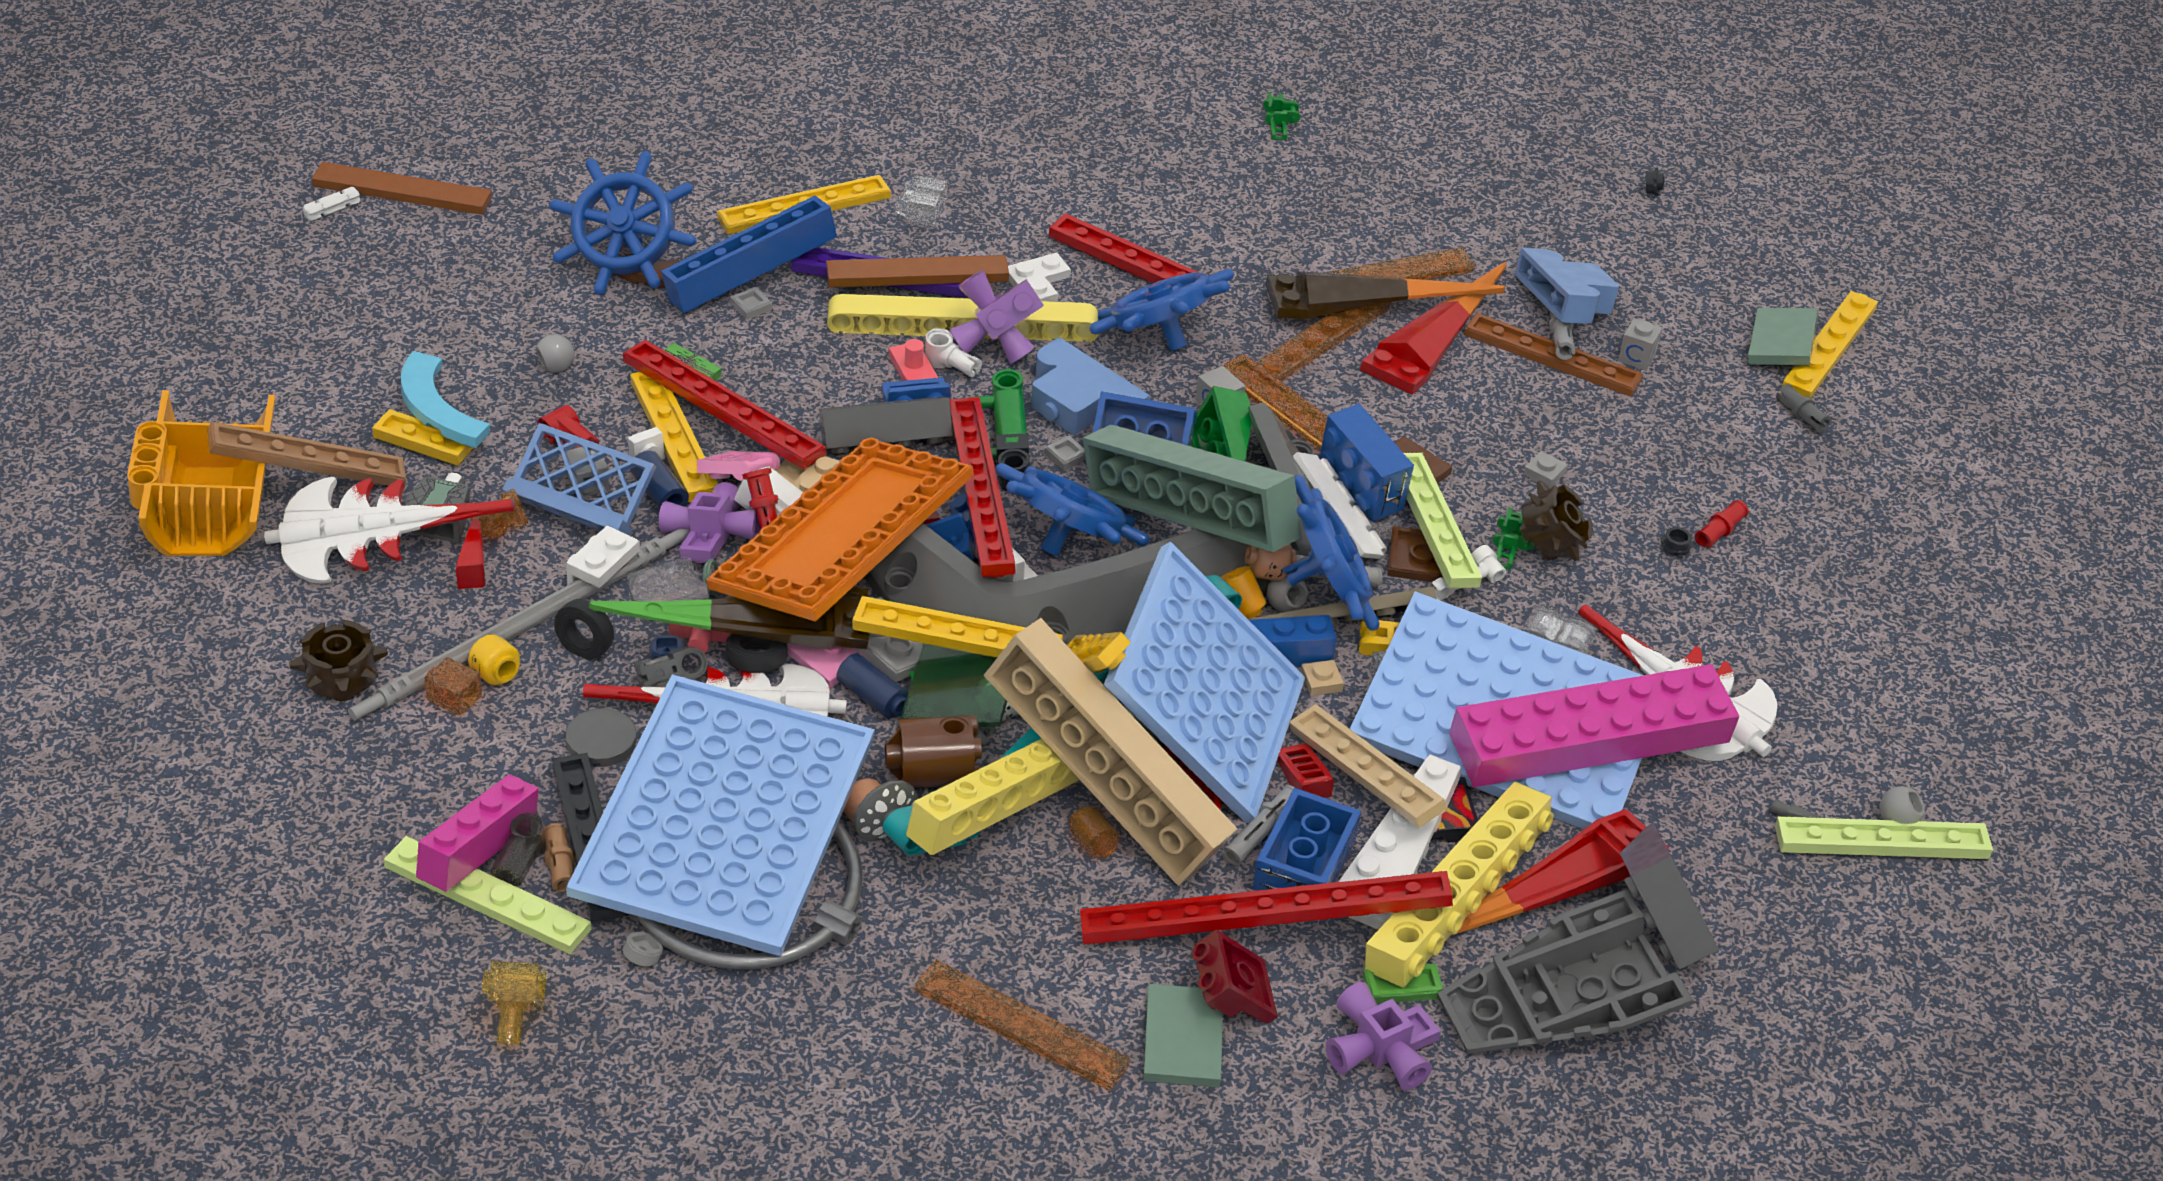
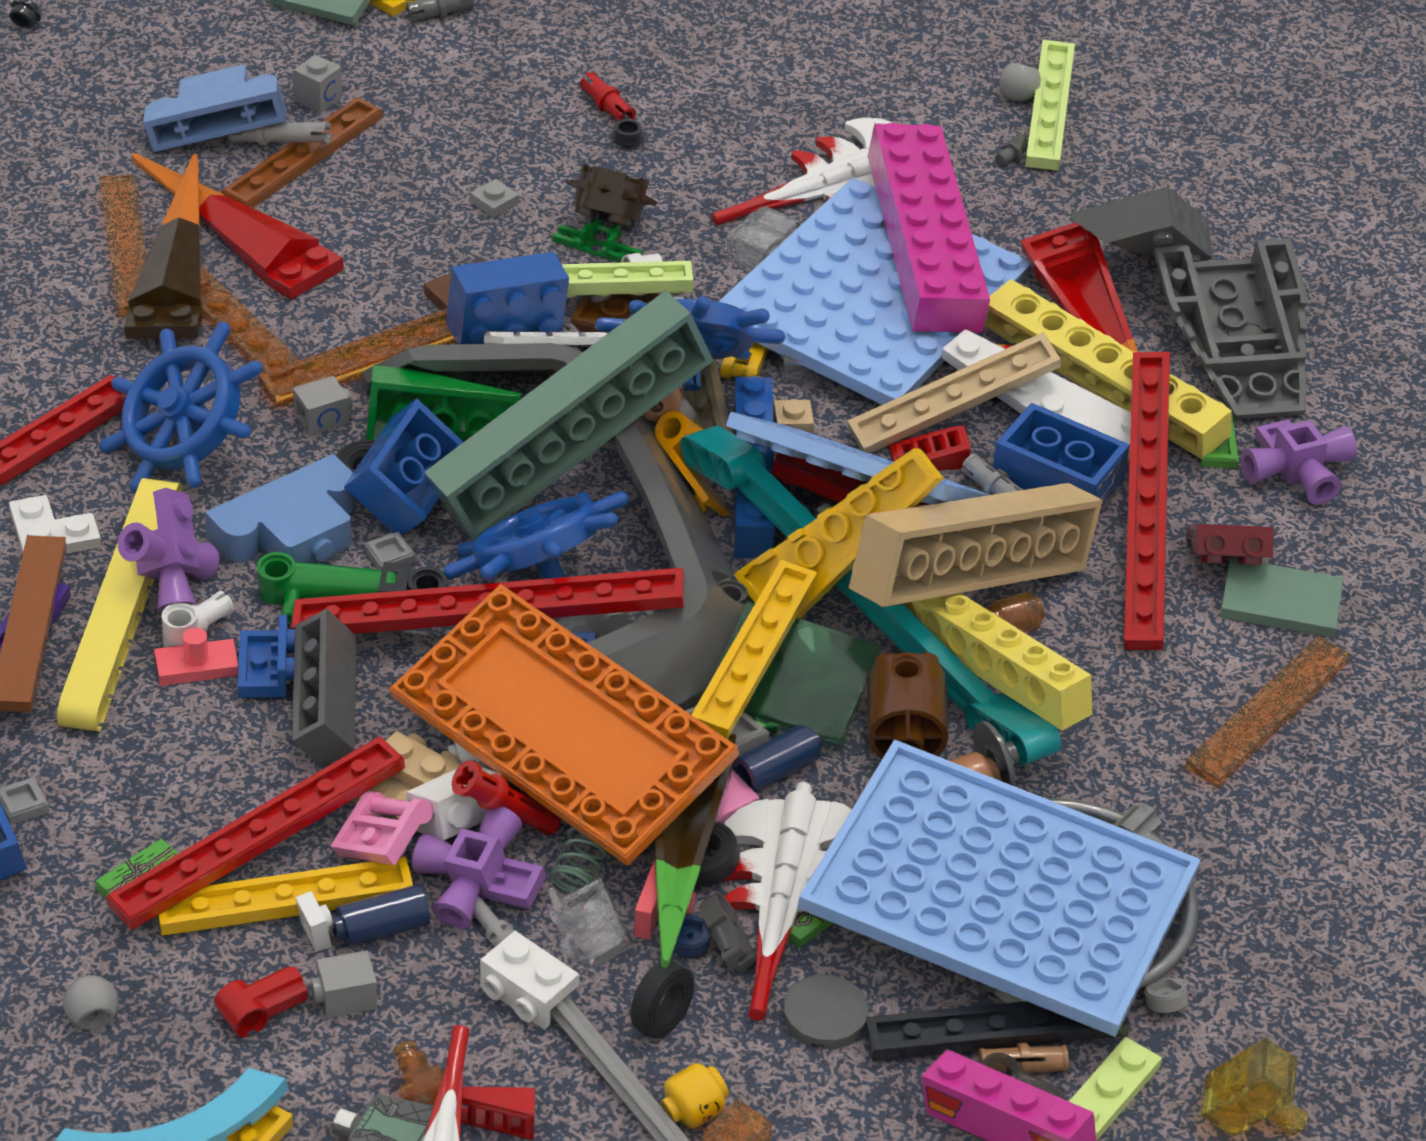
camera: 80 degrees left, 0 degrees up
(576, 508) = (410, 1010): medium blue fence -> none

